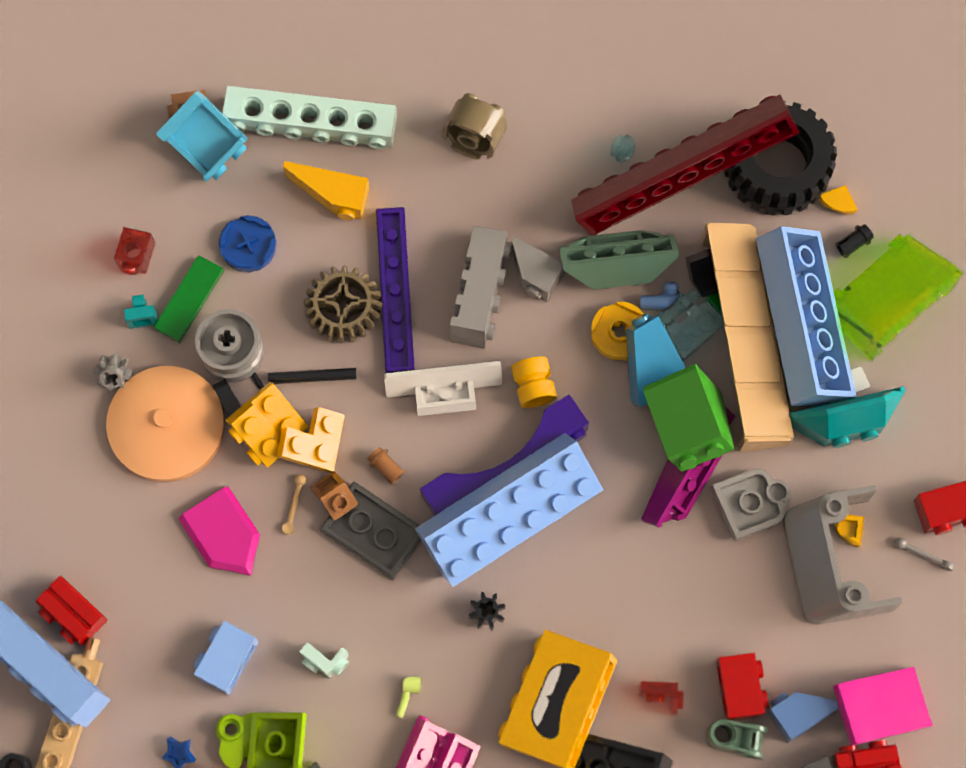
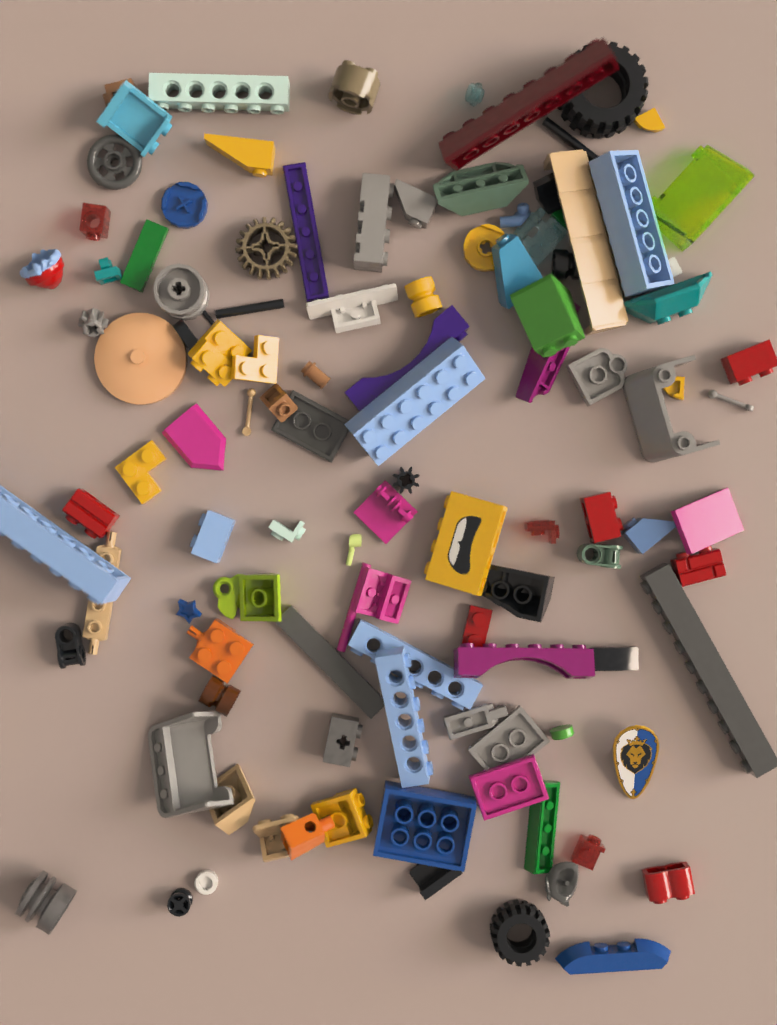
camera: 10 degrees left, 15 degrees up
(63, 302) = (44, 269): none -> hair
(138, 561) = (135, 471): none -> yellow plate
(159, 206) = (108, 181): none -> dark grey plate
(456, 651) = (385, 512): none -> dark pink hinge
(716, 360) = (563, 265): none -> black wheel
(735, 211) = (568, 138): none -> black bar
(852, 242) = (665, 153): black pin -> none

